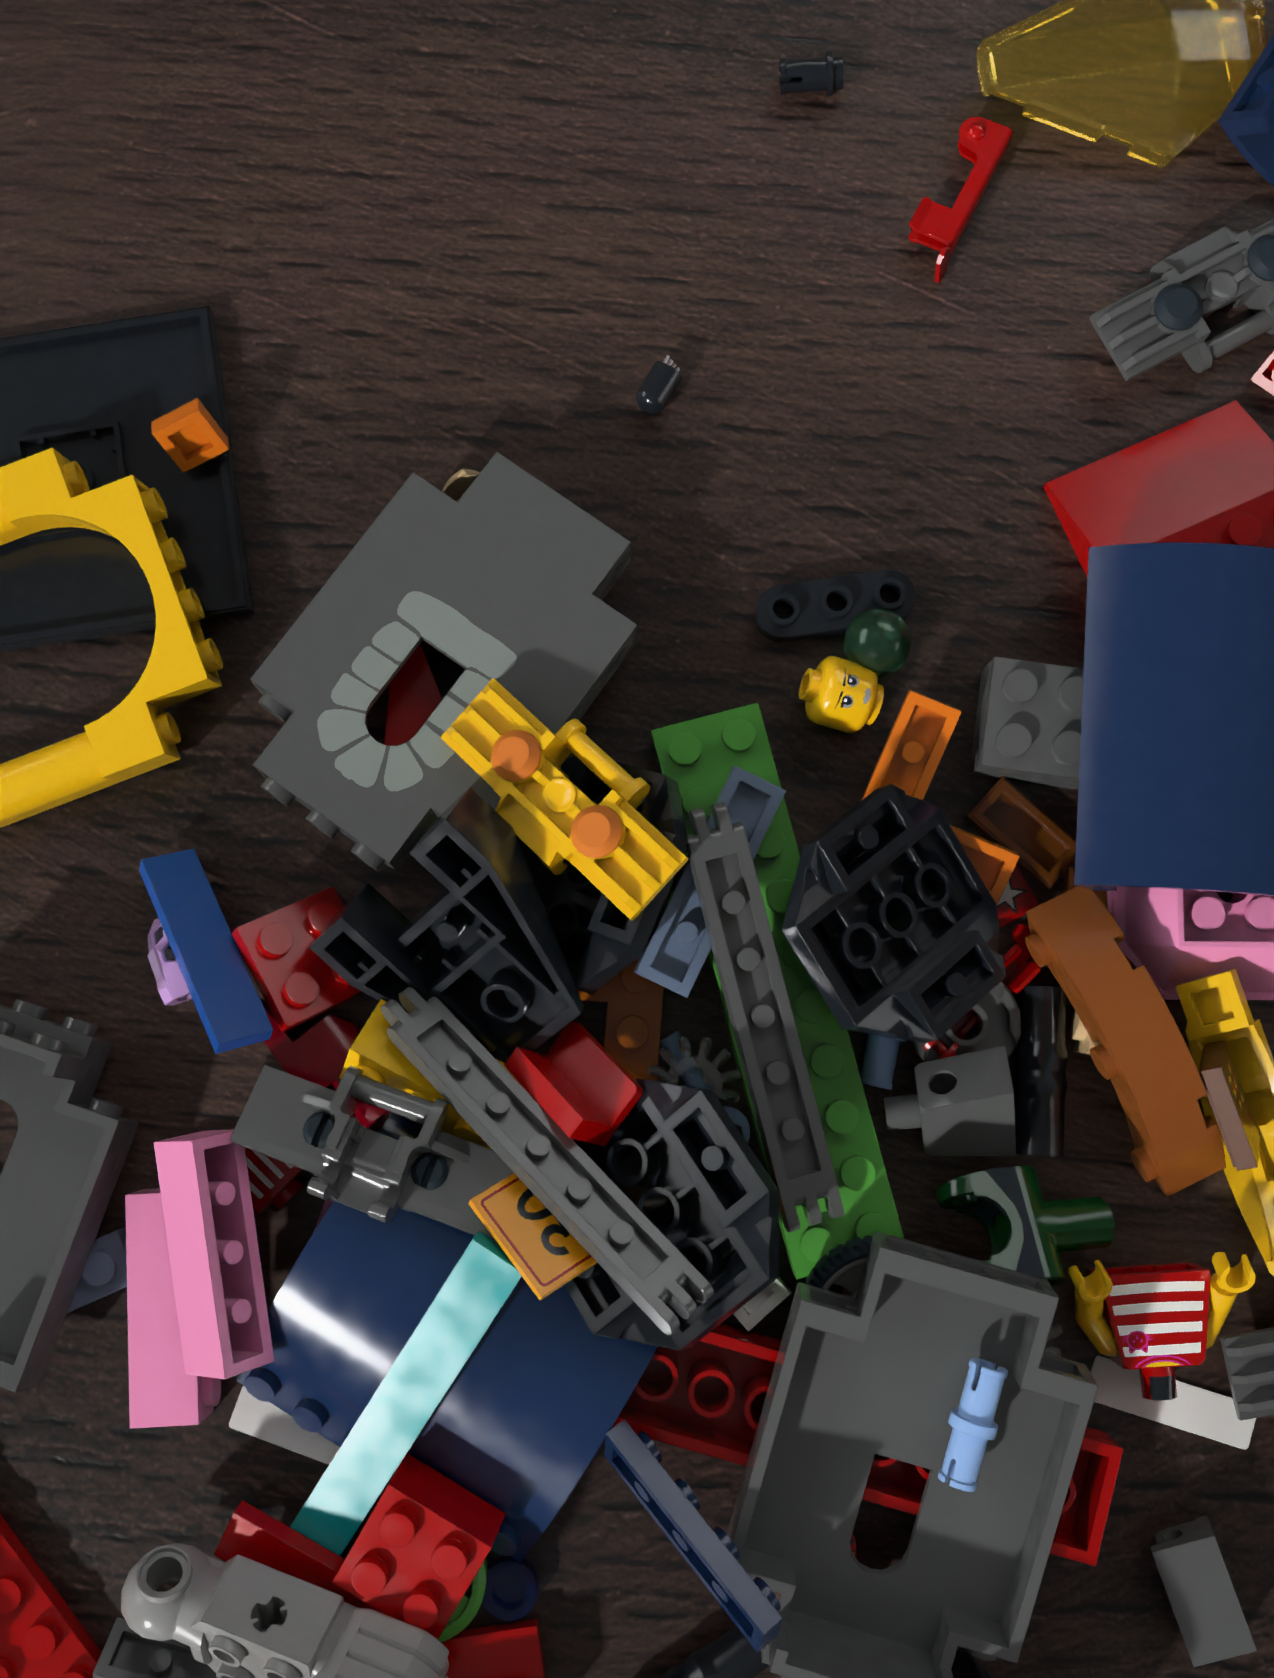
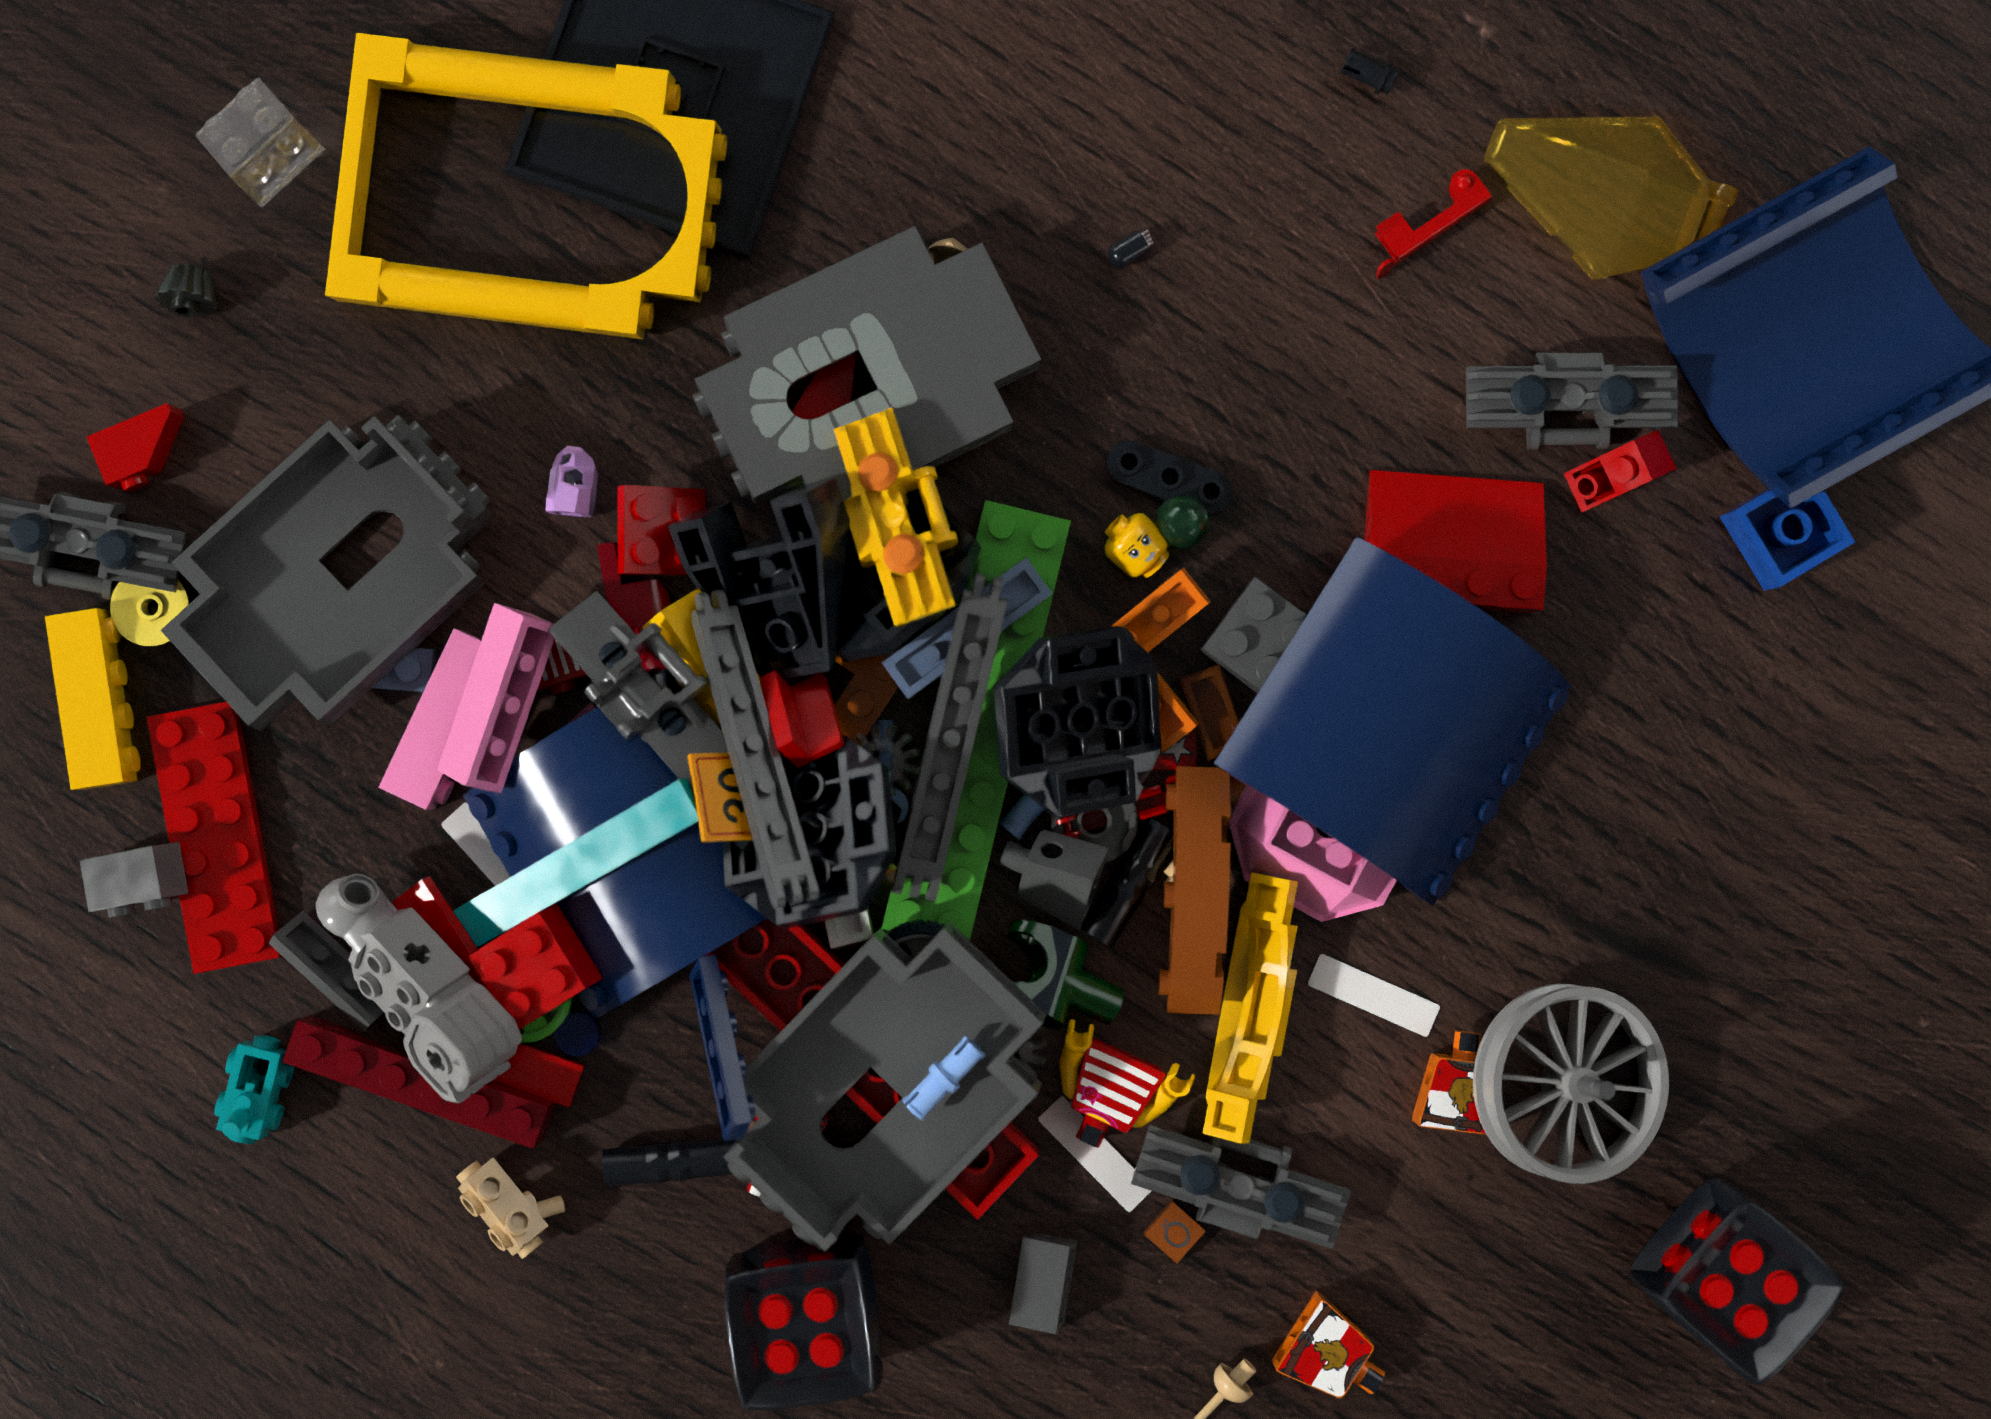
camera: 25 degrees right, 5 degrees up
(190, 435) = (771, 107): orange tile -> none
(205, 951) = (594, 487): blue tile -> none
(1229, 1105) = (1241, 971): reddish brown tile -> none

